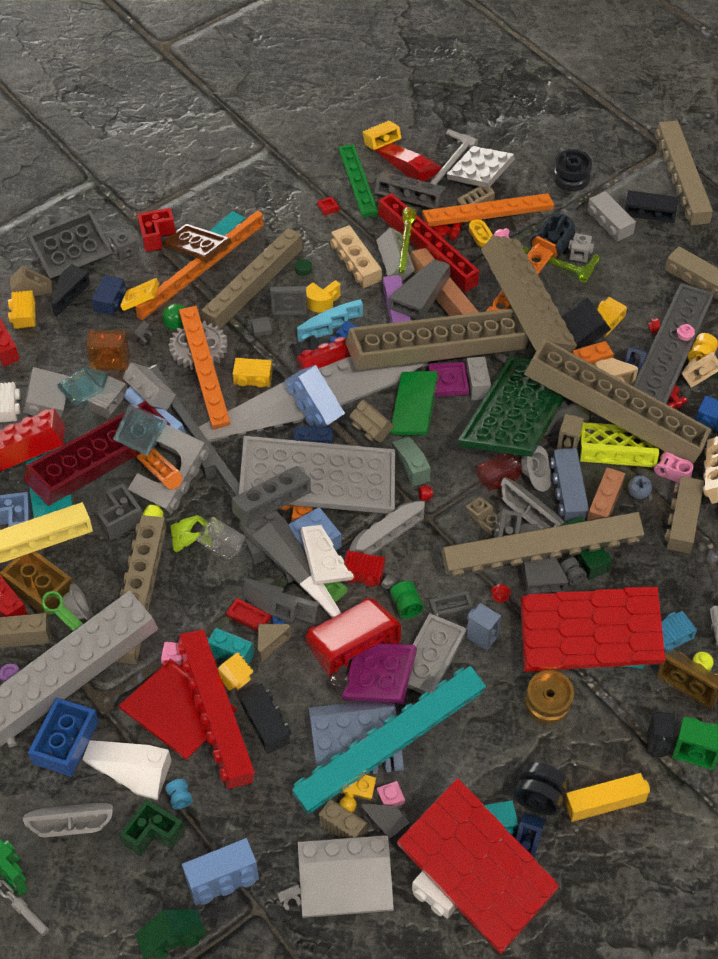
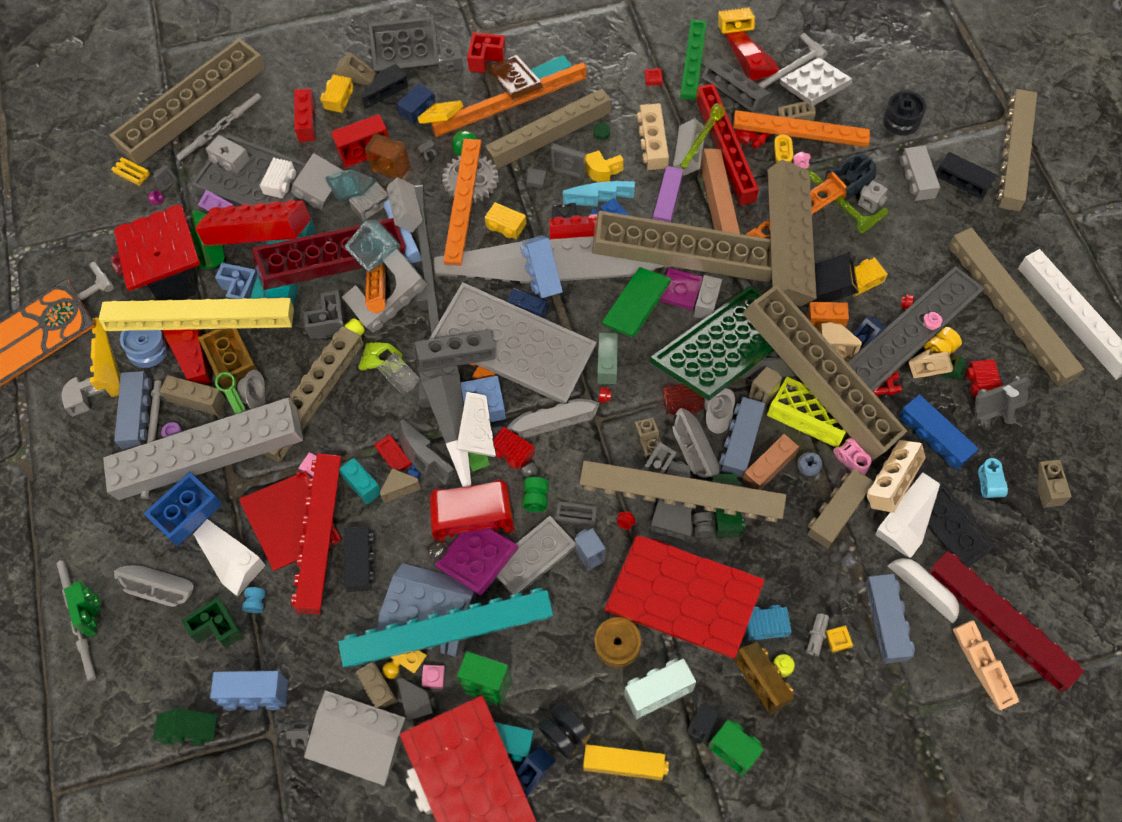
camera: 25 degrees right, 10 degrees up
(68, 345) = (354, 138): none -> red brick
(235, 672) = (348, 507): yellow brick -> none
(371, 421) = (587, 306): dark tan brick -> none
(421, 290) = (692, 192): dark grey slope -> none
(444, 765) = (484, 678): none -> green brick
(606, 719) = (659, 688): none -> light aqua brick

